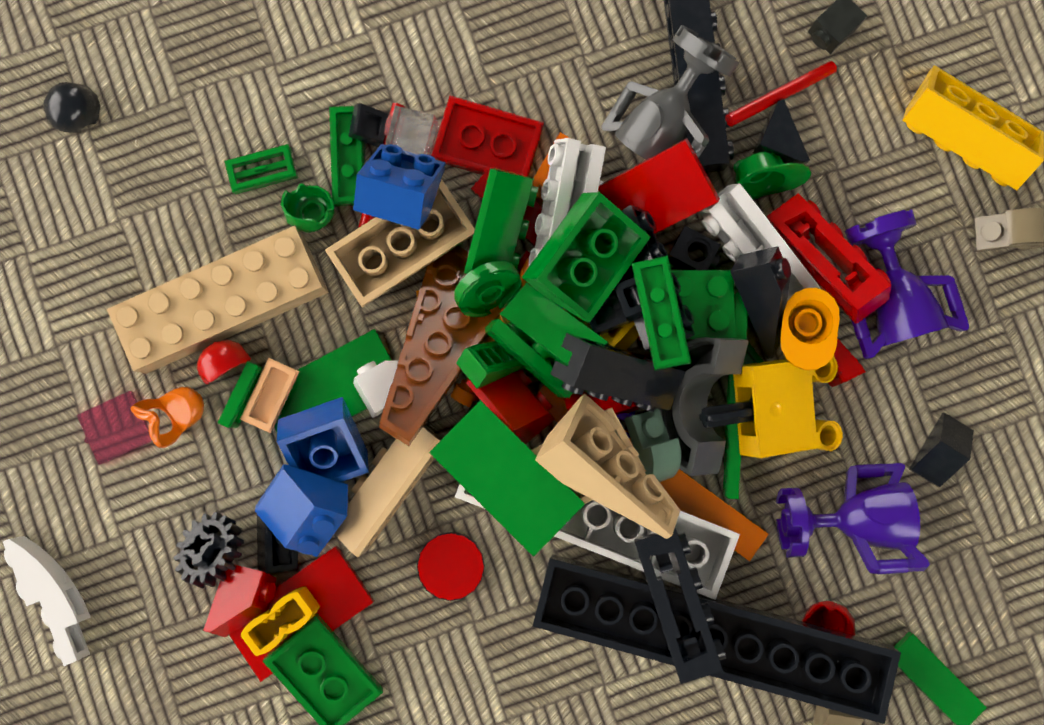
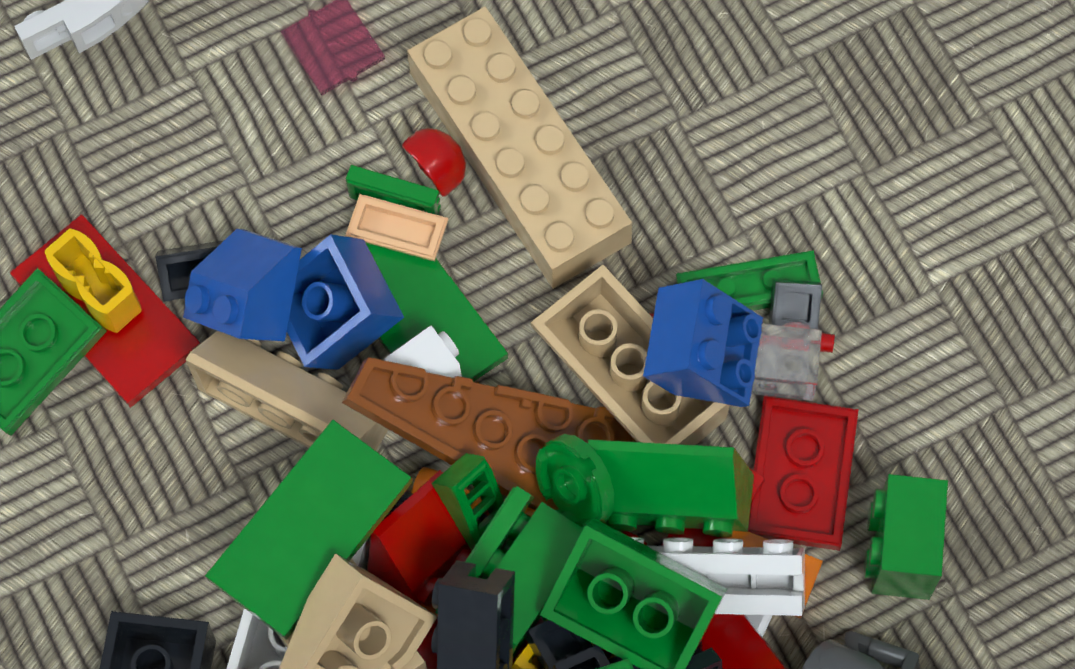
camera: 85 degrees right, 15 degrees down
(181, 405) = (371, 122): orange piece -> none
(208, 550) = (179, 180): black gear -> none
(239, 600) = (119, 226): slope -> none
(261, 182) = (725, 209): green tile -> none
(308, 208) = (663, 240): green hair -> none
(450, 566) = (187, 502): red tile -> none
(549, 73) = (909, 537): none -> green brick

